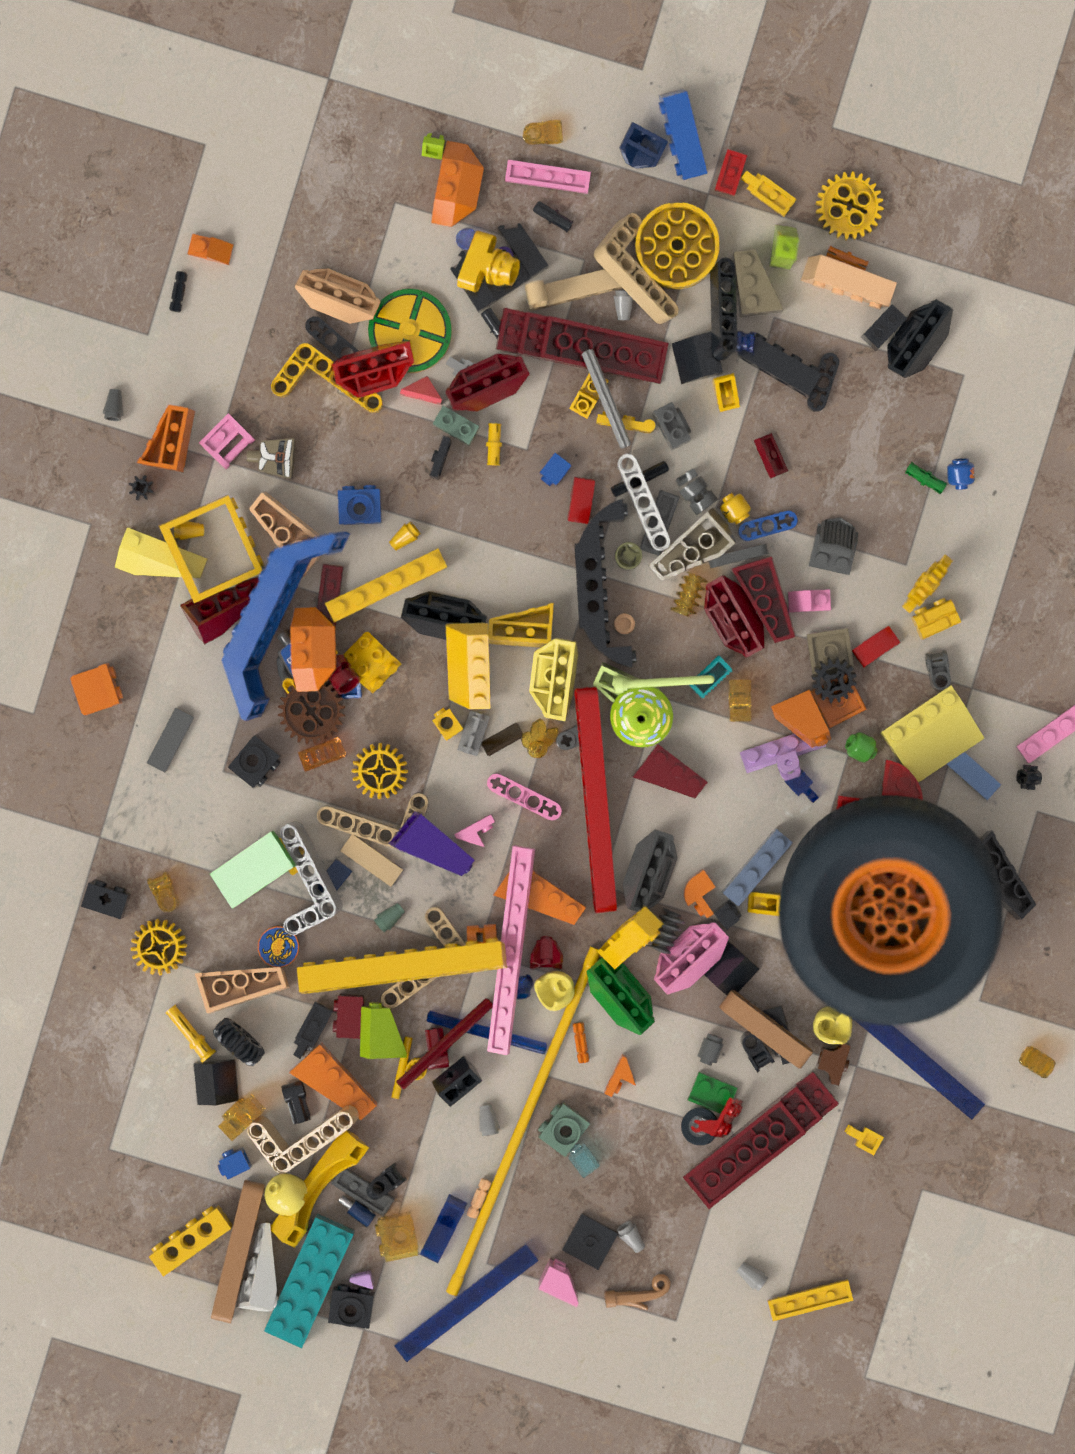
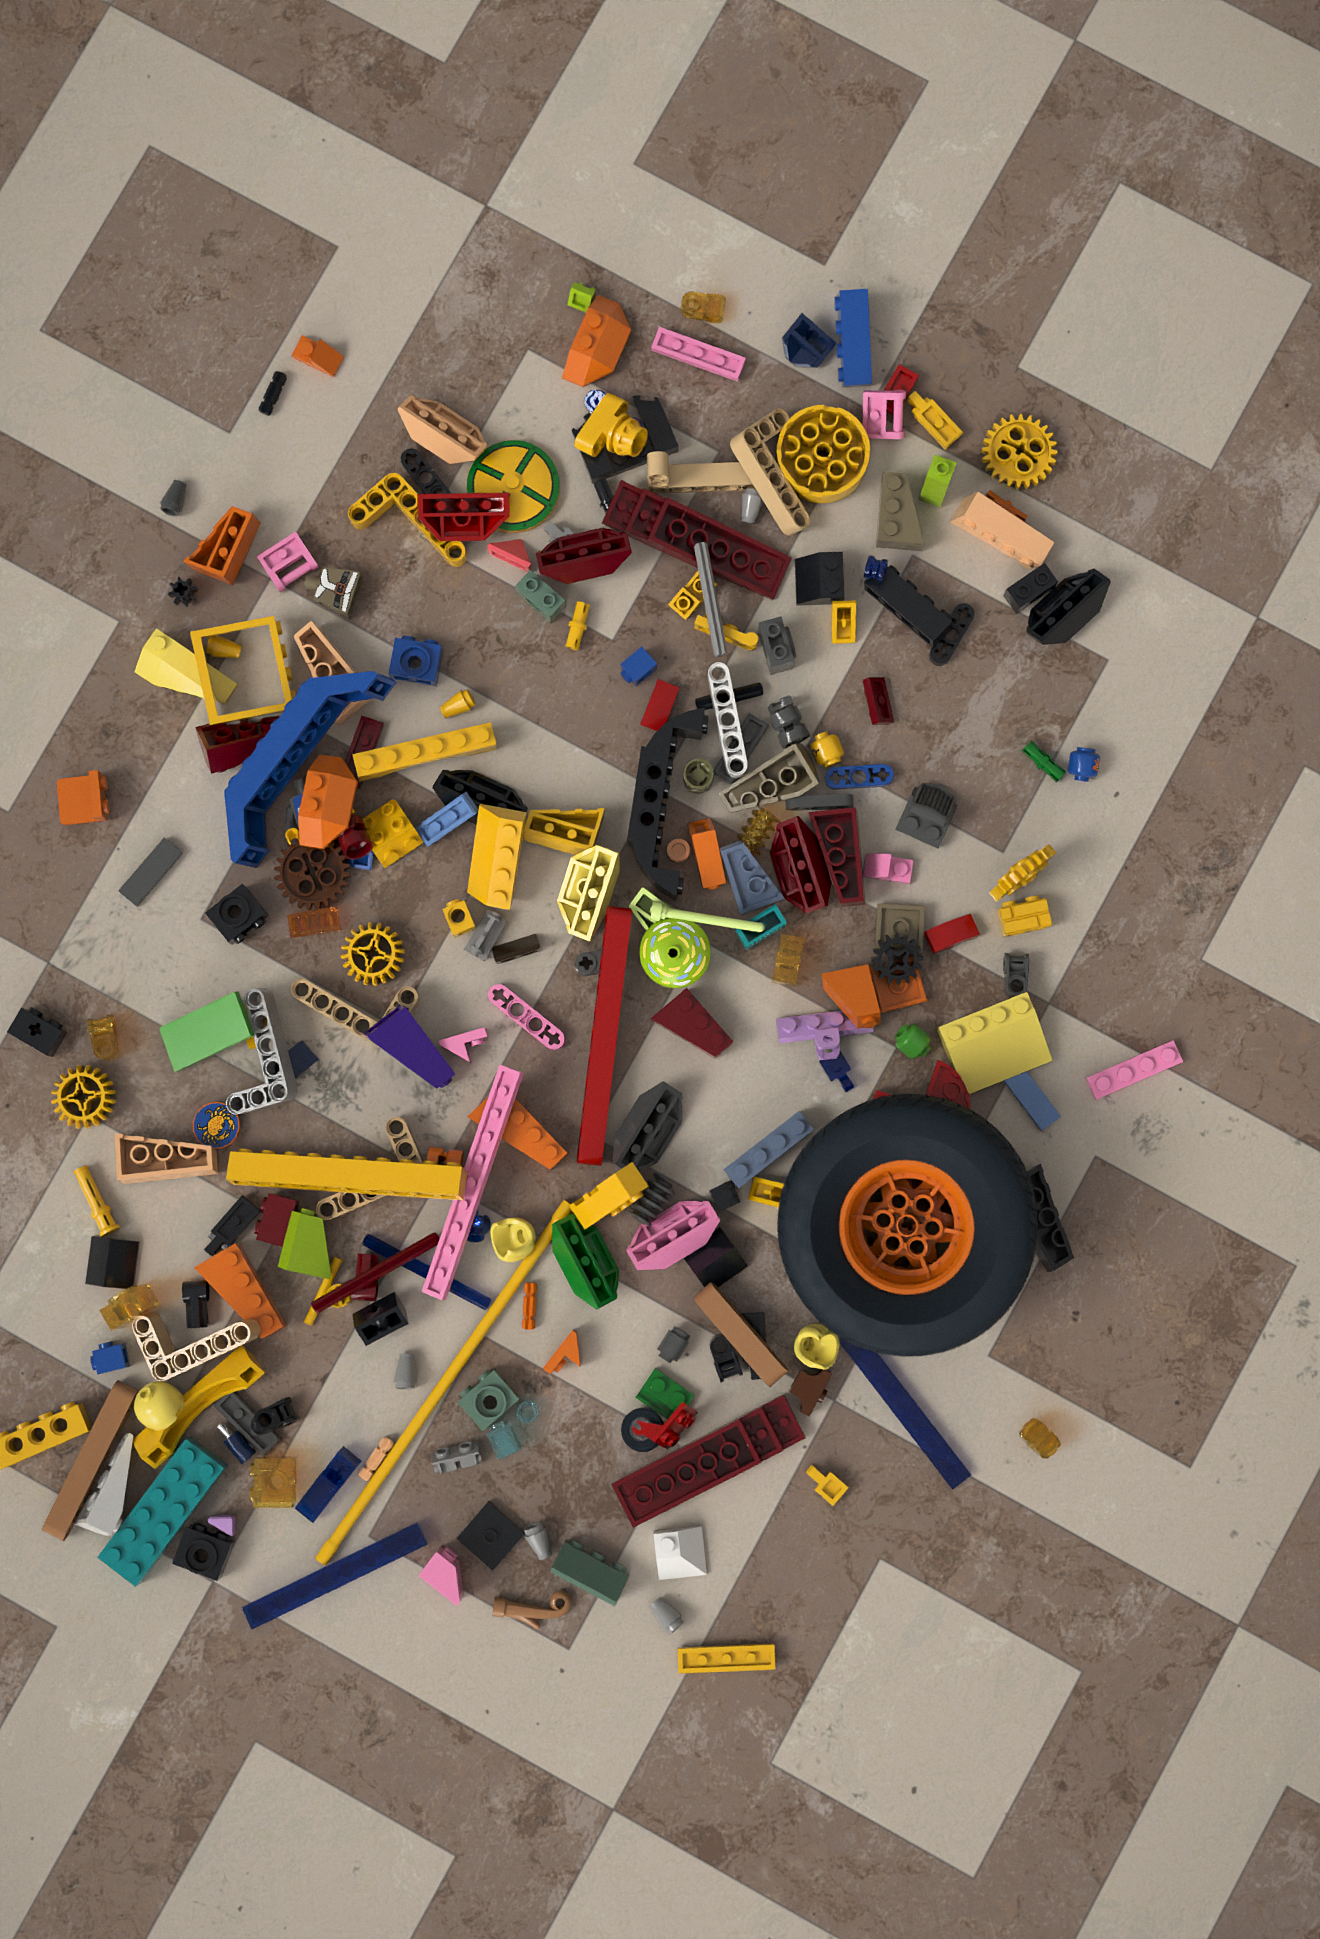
camera: 15 degrees right, 5 degrees down
(238, 1042) = (146, 1221): black gear -> none
(371, 860) = (341, 1051): tan tile -> none
(389, 917) = (346, 1119): sand green cone -> none
(418, 641) = (446, 819): none -> medium blue tile
(439, 458) = (515, 626): black plate -> none
(538, 738) = (557, 953): clear yellow plate -> none
(546, 954) = (512, 1197): dark red brick -> none
(553, 216) = (695, 397): black axle -> none
(553, 1177) = (445, 1458): none -> light grey hinge
(599, 1137) = (526, 1403): none -> clear light blue bush
(649, 621) = (707, 853): none -> orange slope
(681, 1254) = (590, 1571): none -> sand green slope
(690, 637) = (747, 879): none -> sand blue wing
(695, 888) = (693, 1160): orange brick -> none
(716, 198) = (876, 414): none -> bright pink plate
(719, 316) = (859, 530): black beam -> none
(753, 1221) = (680, 1552): none -> white slope
(1029, 777) = (1093, 1114): black gear -> none

